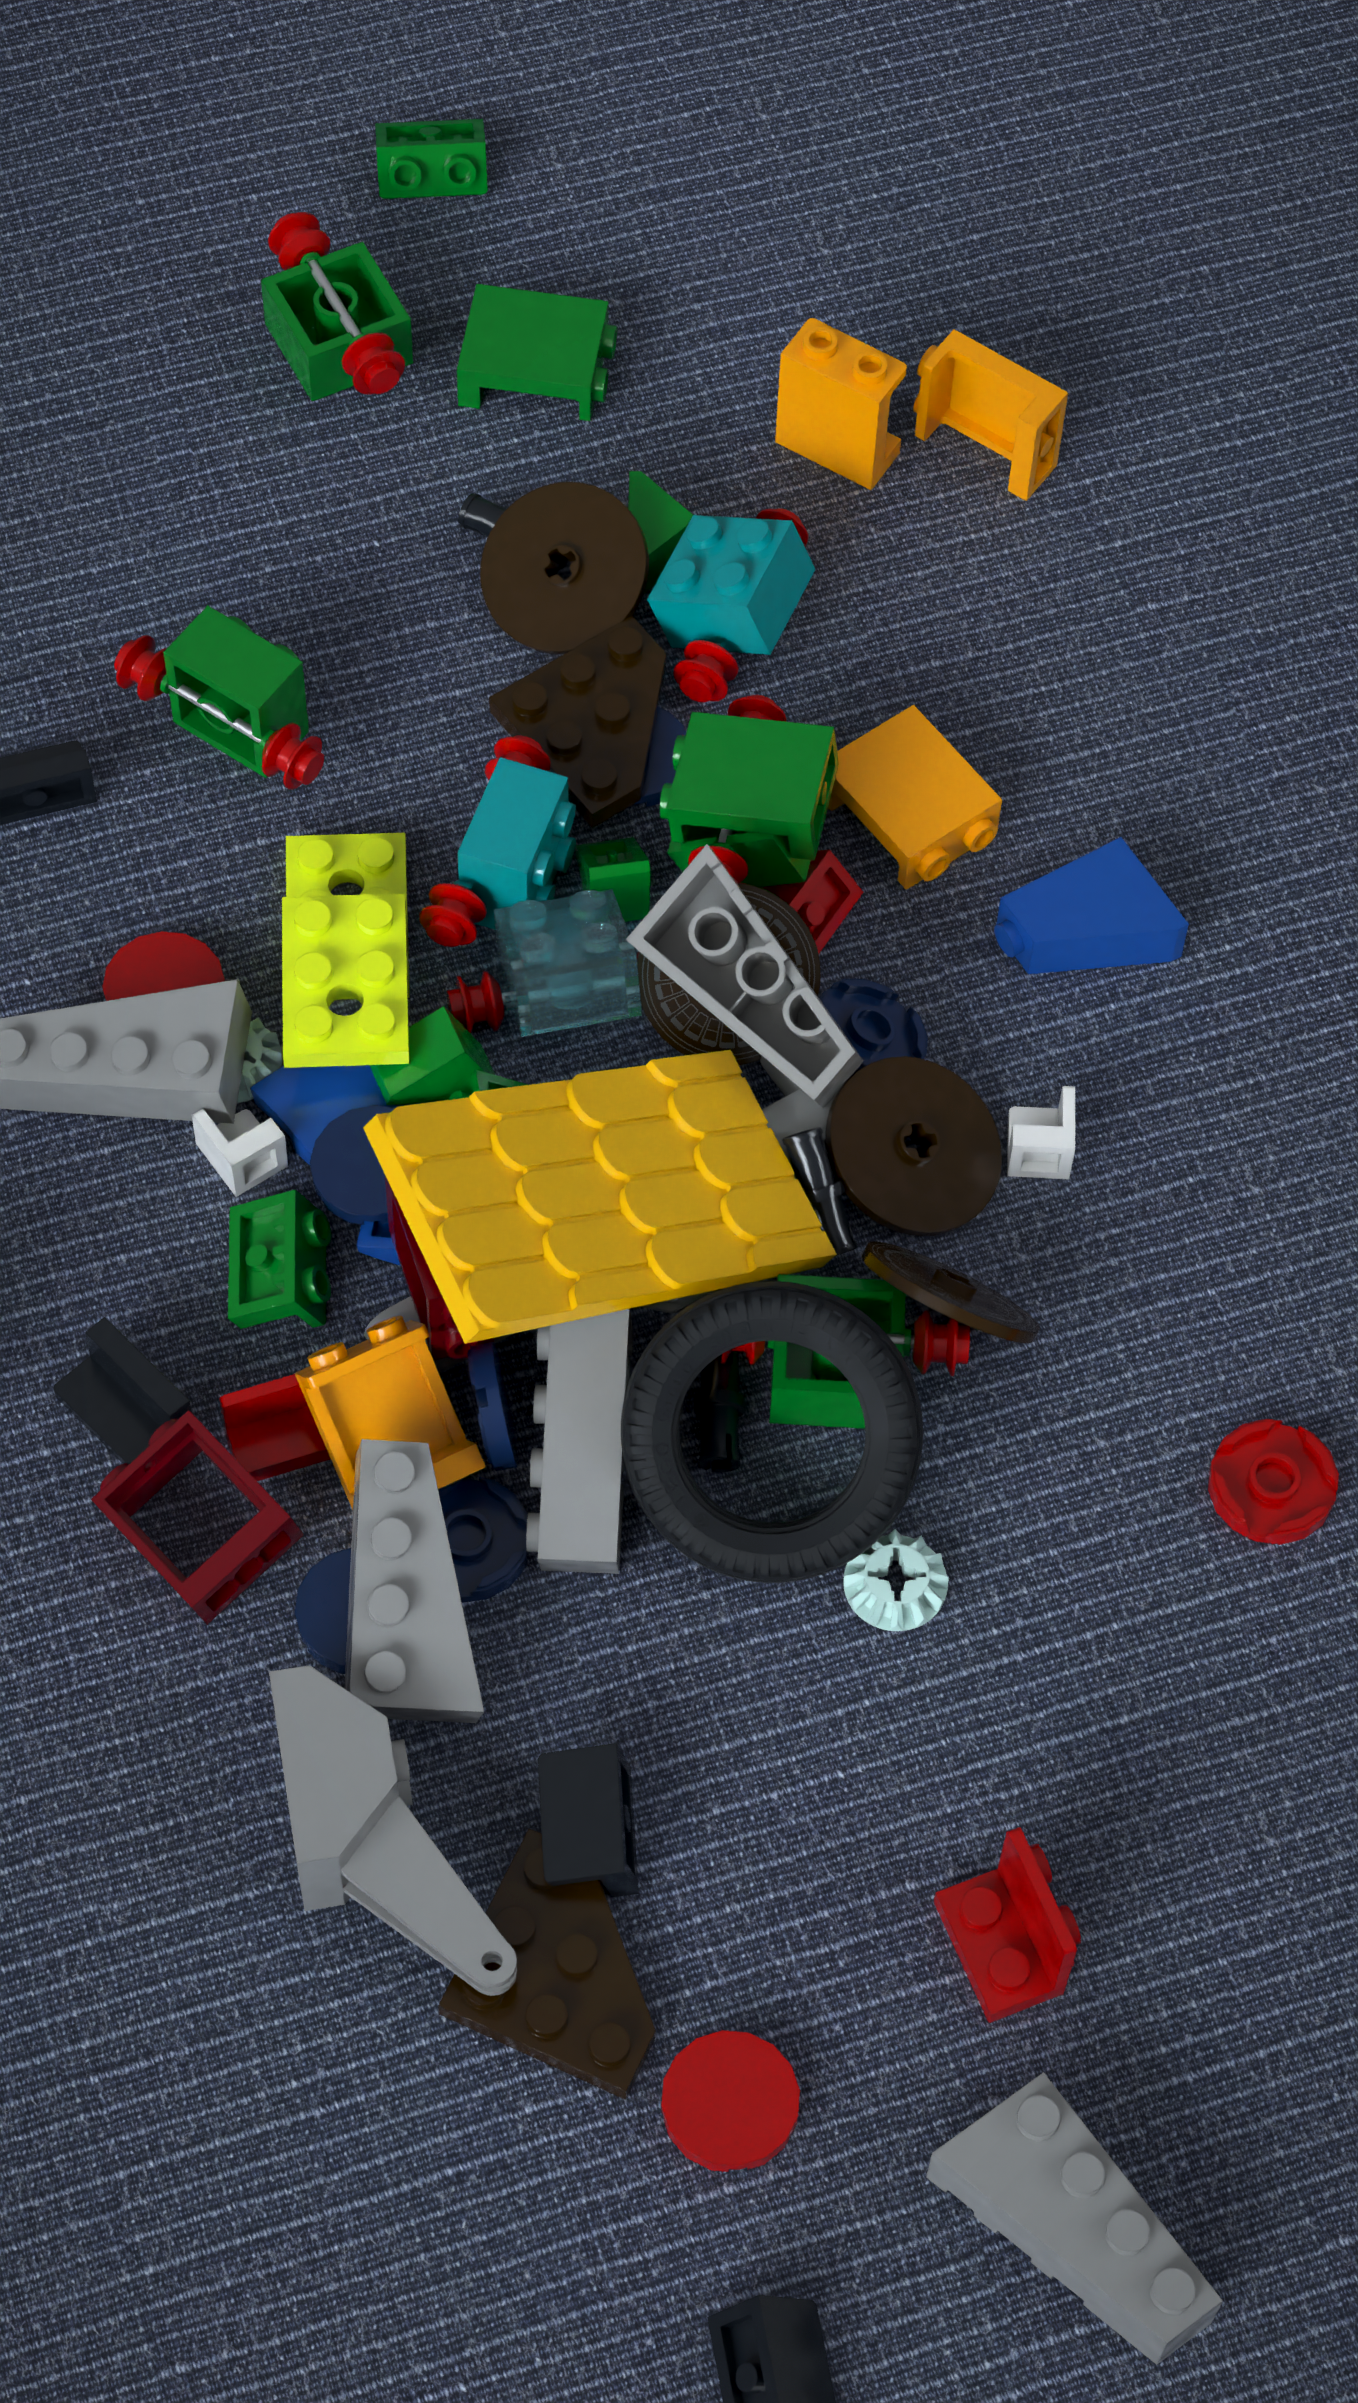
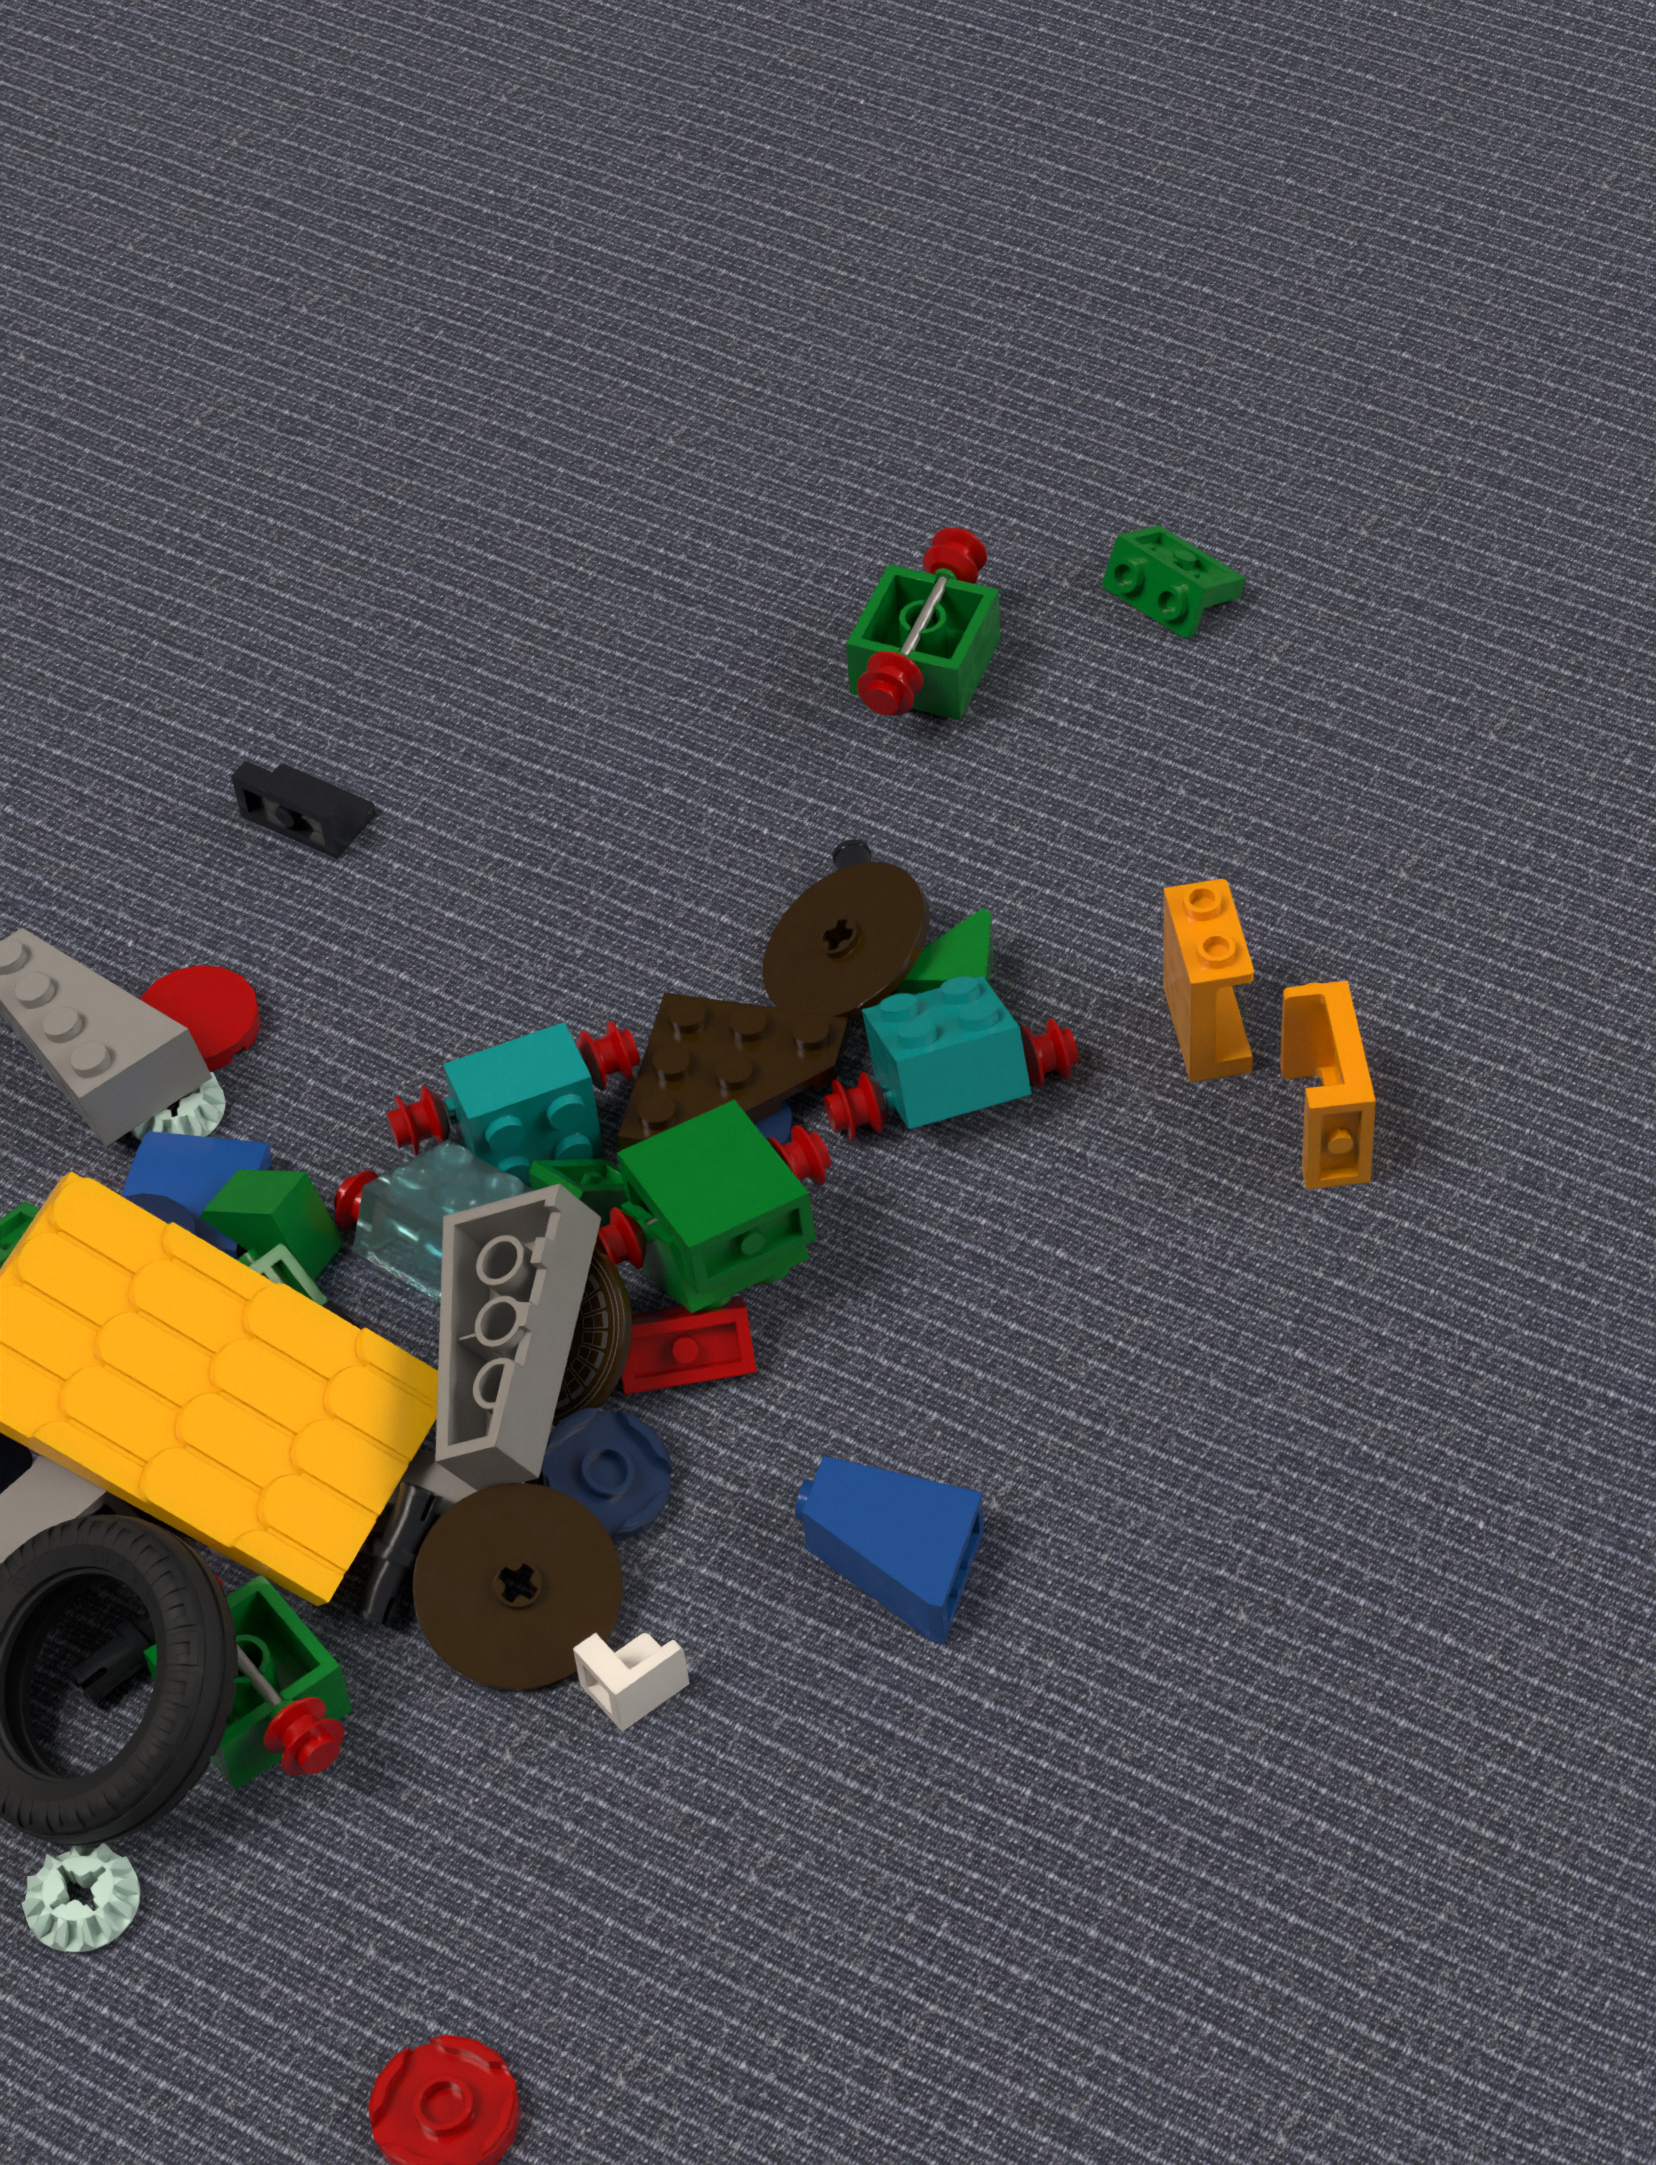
camera: 55 degrees right, 10 degrees down
(230, 693) = (488, 847): green brick -> none
(241, 1151) = (85, 1157): white panel -> none
(345, 950) = (315, 1086): neon yellow bracket -> none
(536, 347) = (1051, 772): green panel -> none
(916, 795) = (877, 1328): light orange panel -> none
(950, 1292) = (366, 1709): dark brown piece -> none

